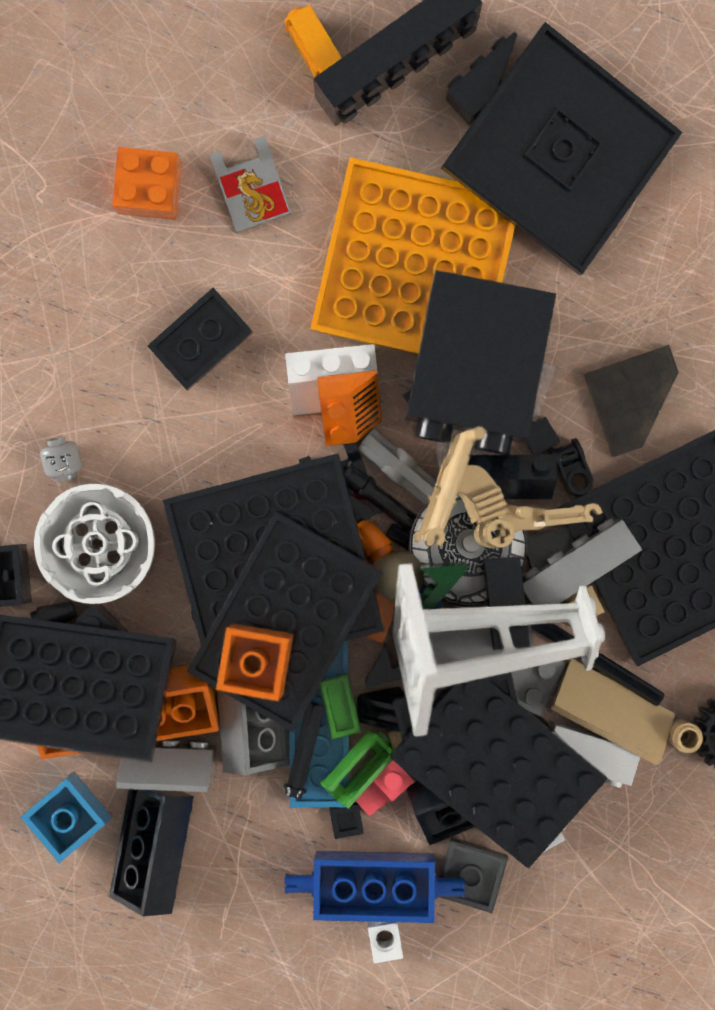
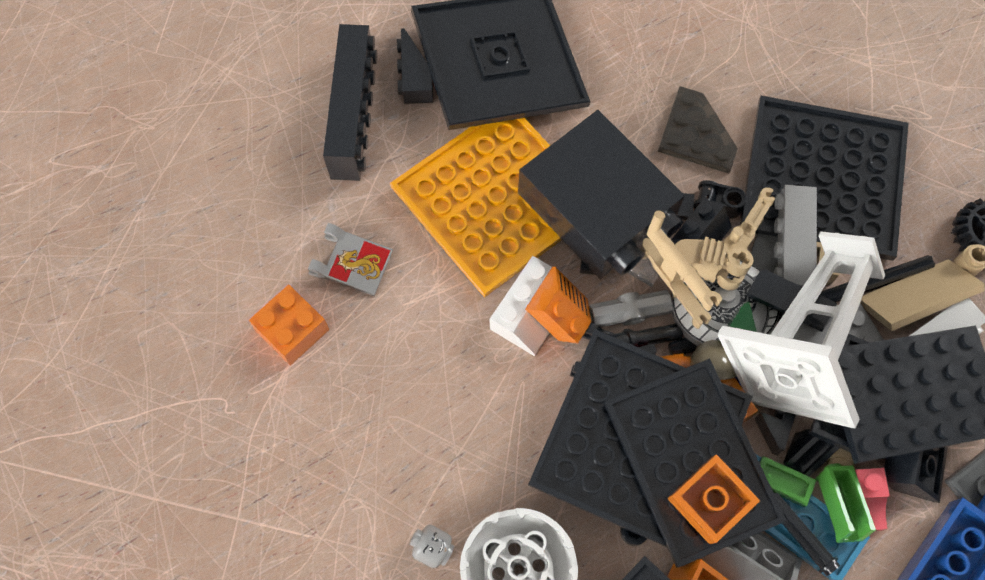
camera: 45 degrees left, 20 degrees down
(200, 339) = (427, 375): black plate -> none
(311, 39) = (295, 150): light orange window -> none
(346, 821) = (879, 551): black tile -> none

